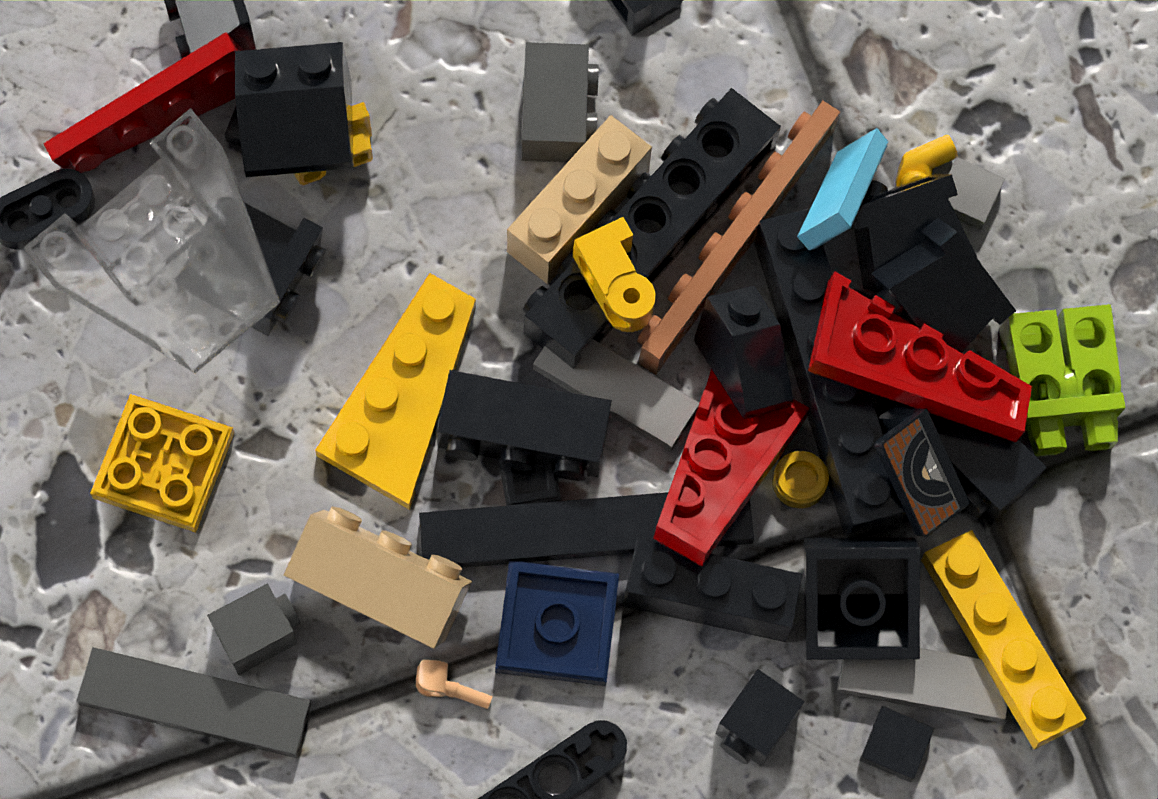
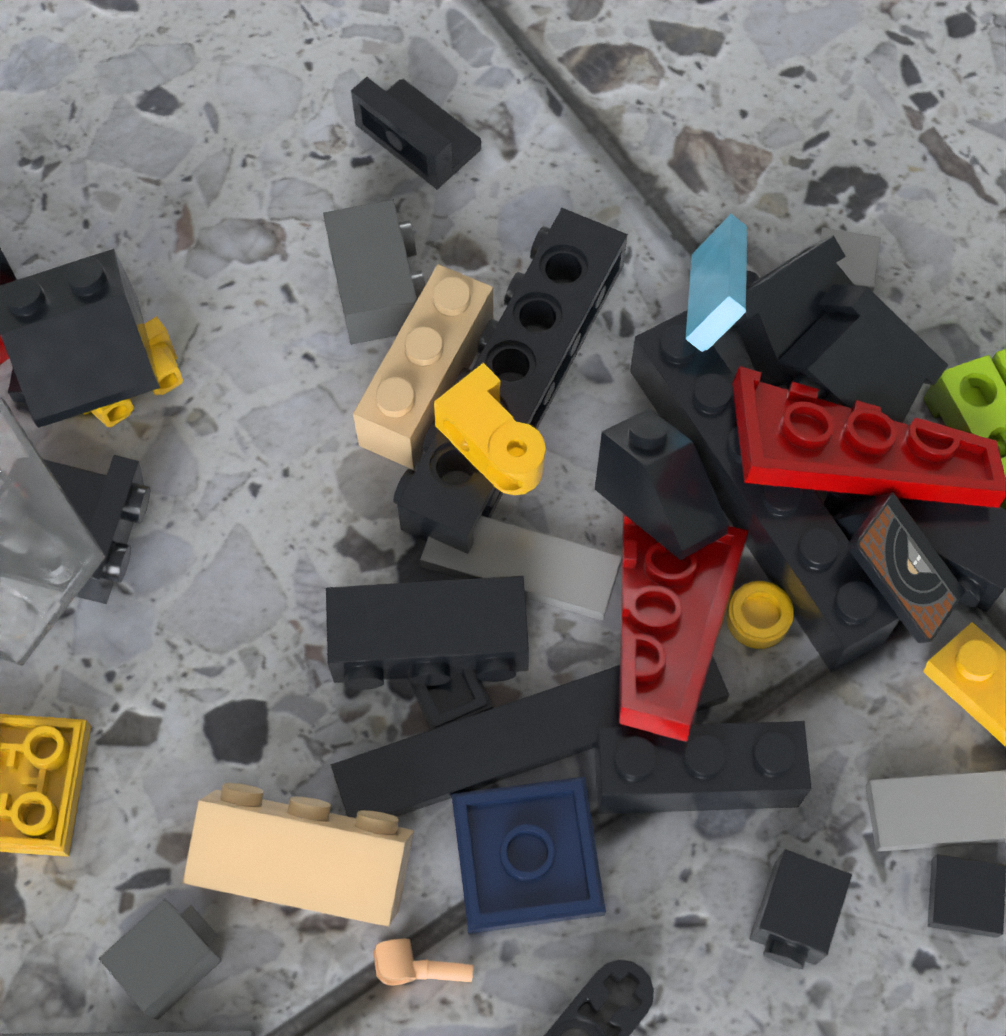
camera: 10 degrees left, 5 degrees down
(396, 404) = (272, 652): yellow wing -> none
(724, 252) = (601, 386): nougat plate -> none
(862, 598) = (878, 732): black slope -> none
(921, 160) = (788, 237): yellow arm -> none

